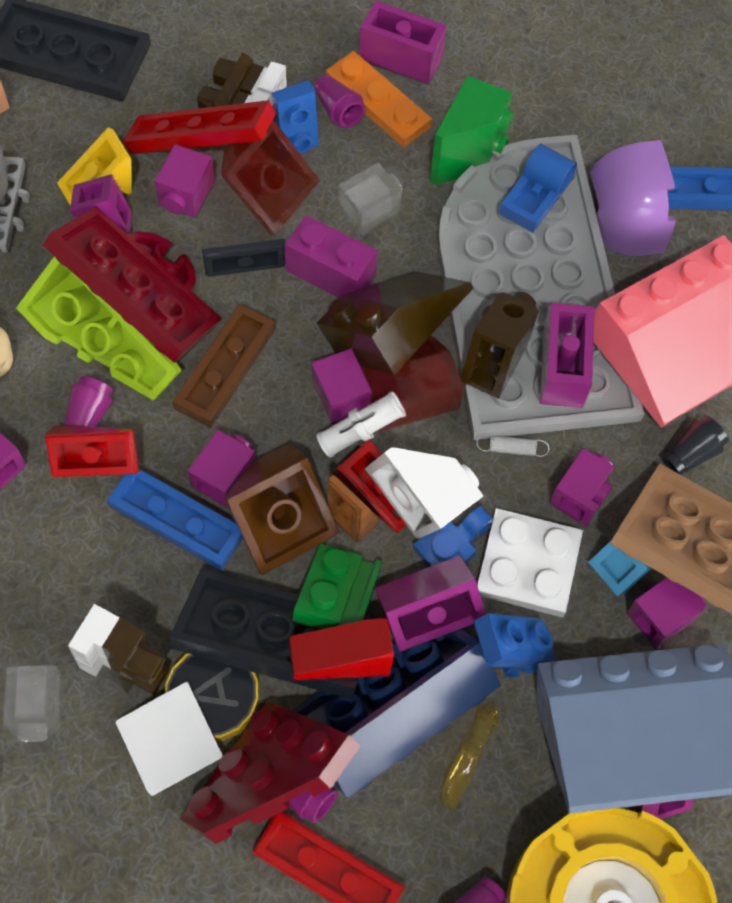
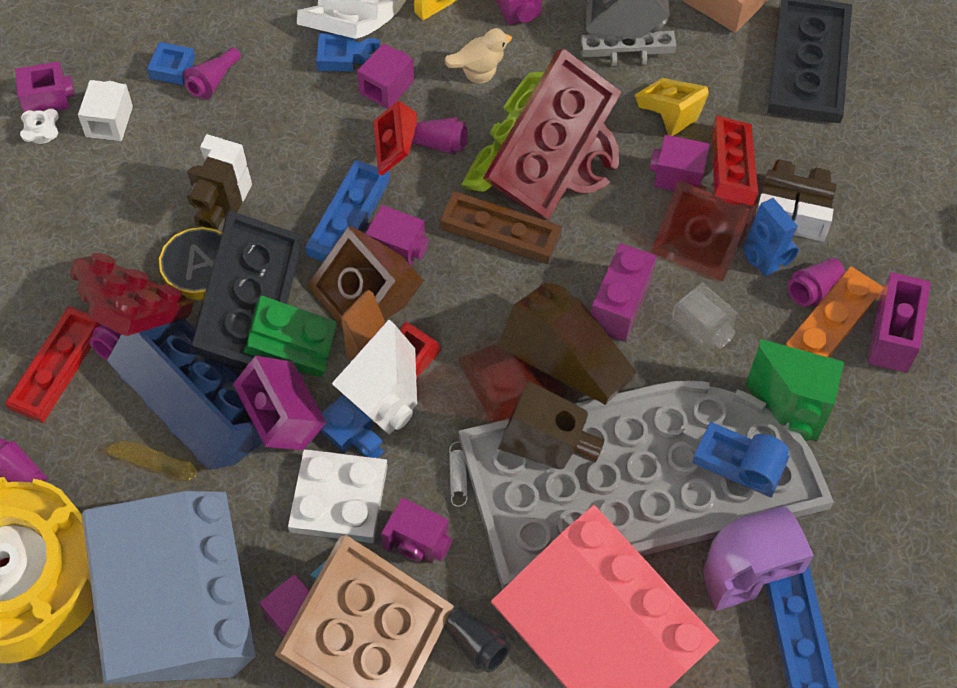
camera: 85 degrees right, 5 degrees down
(33, 702) = (179, 141): clear brick -> none
(106, 196) = (634, 108): magenta brick -> none
(168, 739) = (158, 237): white sticker -> none
(244, 257) = (615, 219): black slope -> none
(340, 384) = (486, 316): magenta brick -> none
(343, 651) = (223, 333): red slope -> none
(360, 424) = (451, 334): white pin -> none
(514, 642) = (245, 472): blue plate -> none
(567, 355) = (539, 489): magenta brick -> none

